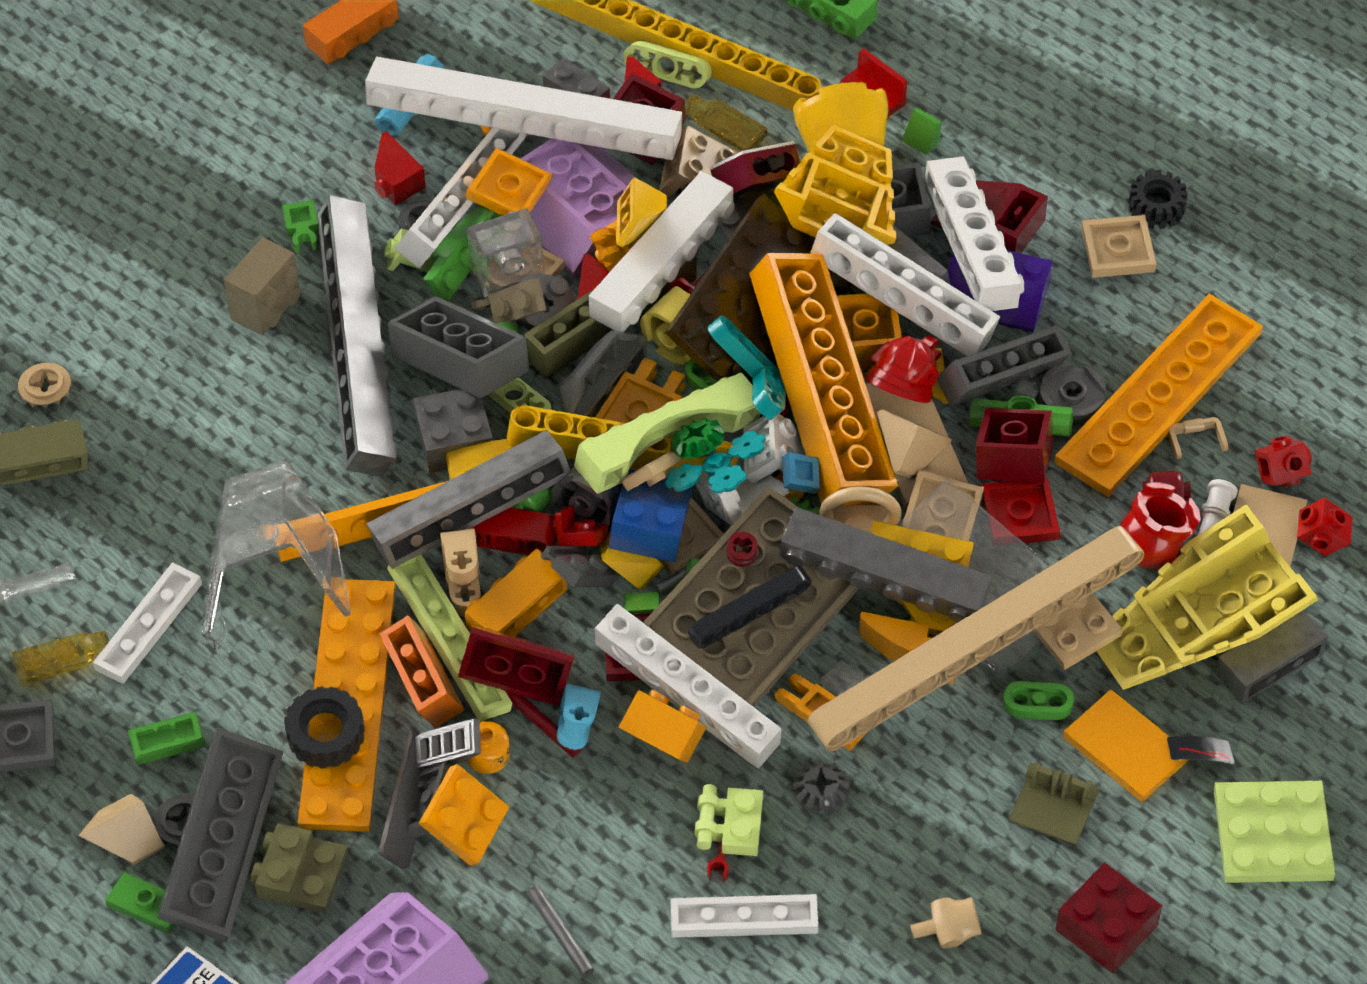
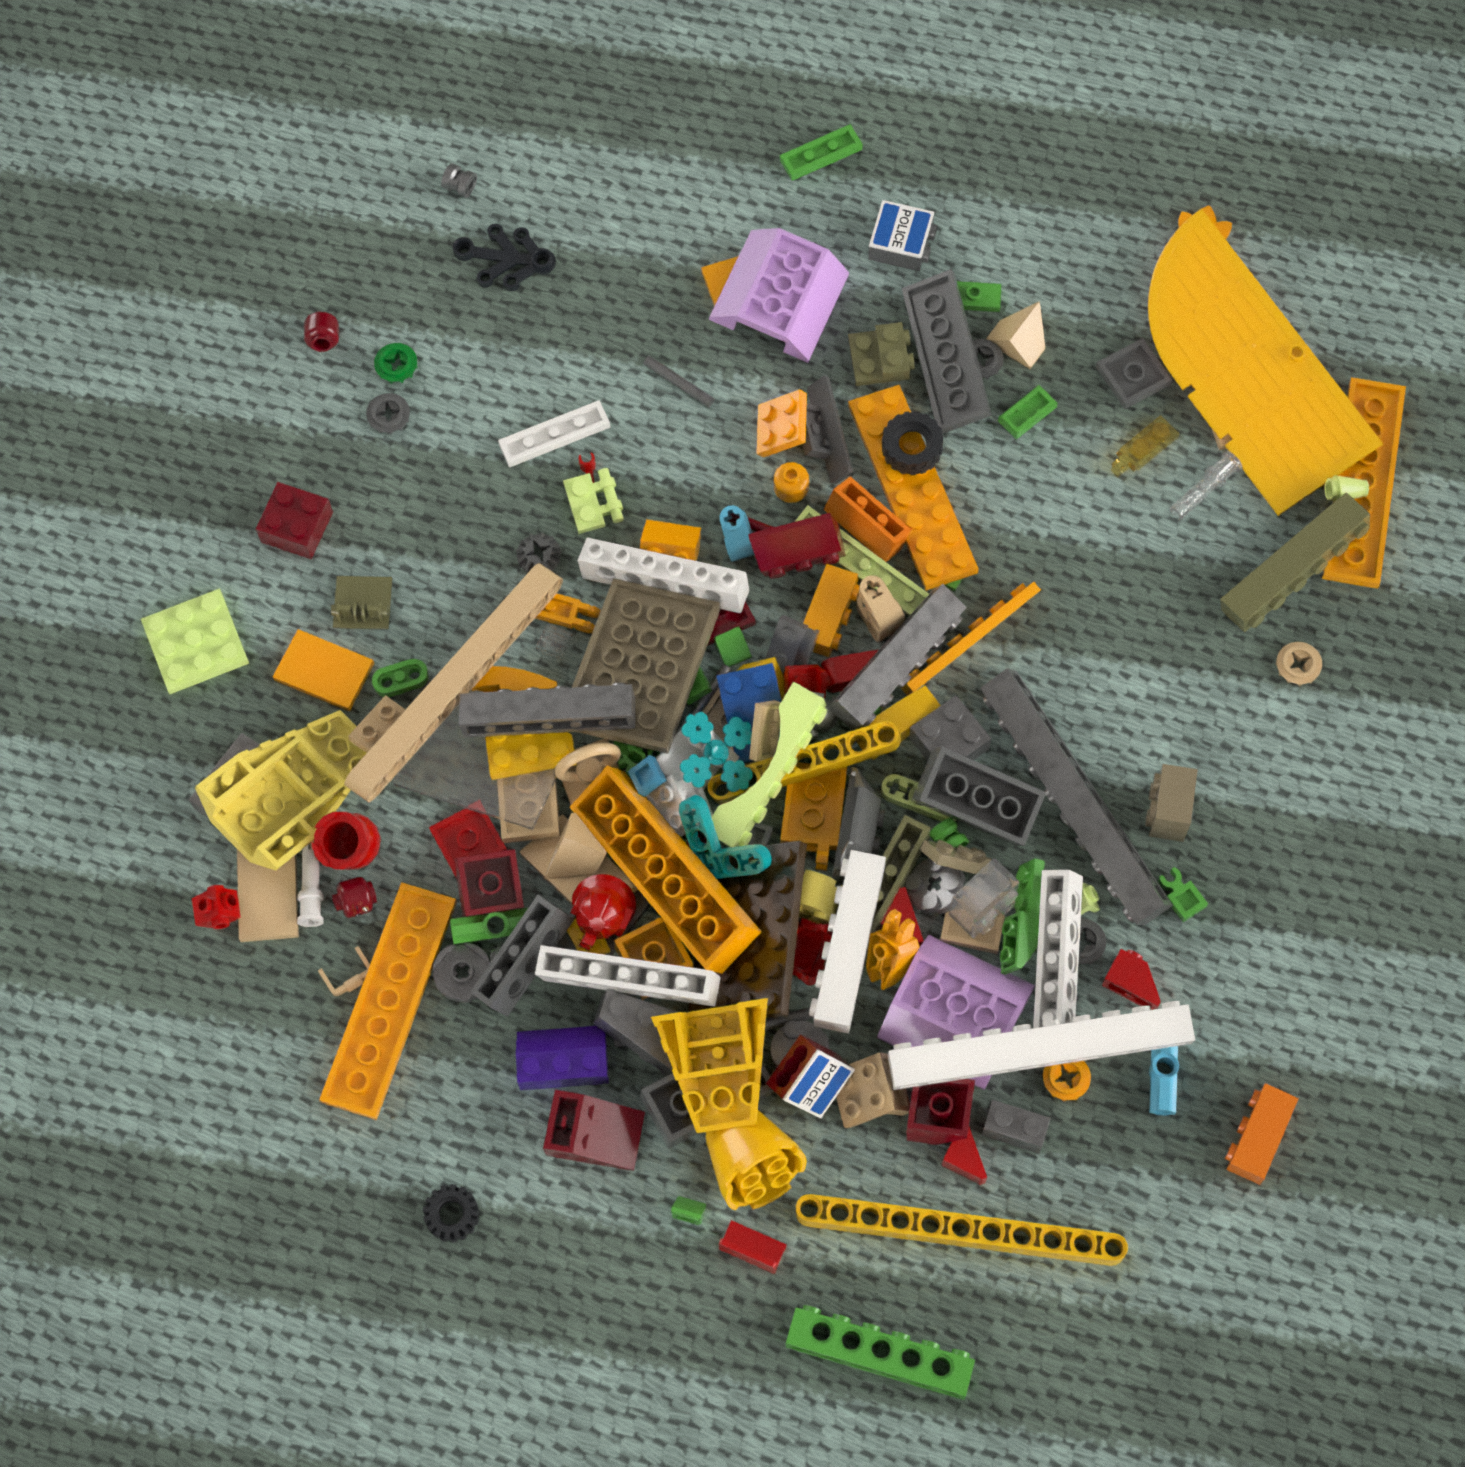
camera: 160 degrees right, 15 degrees up
(147, 623) = (1094, 493): white plate -> none
(261, 516) = (1032, 576): clear windscreen -> none
(447, 744) = (817, 464): flat silver slope -> none
(508, 184) = (1014, 966): light orange tile -> none
(638, 211) = (883, 964): yellow slope -> none
(686, 78) = (951, 1197): yellowish green beam -> none
(689, 441) = (728, 771): green gear -> none
(726, 122) = (868, 1151): clear yellow hinge -> none
(742, 539) = (660, 678): dark red bush -> none
(749, 607) = (638, 640): black beam -> none
(951, 922) = (406, 482): tan piece -> none
(973, 234) = (552, 996): white brick -> none
(1118, 246) = (470, 1145): tan plate -> none
(1199, 748) = (266, 684): black sticker -> none
(1284, 461) = (265, 961): red brick -> none

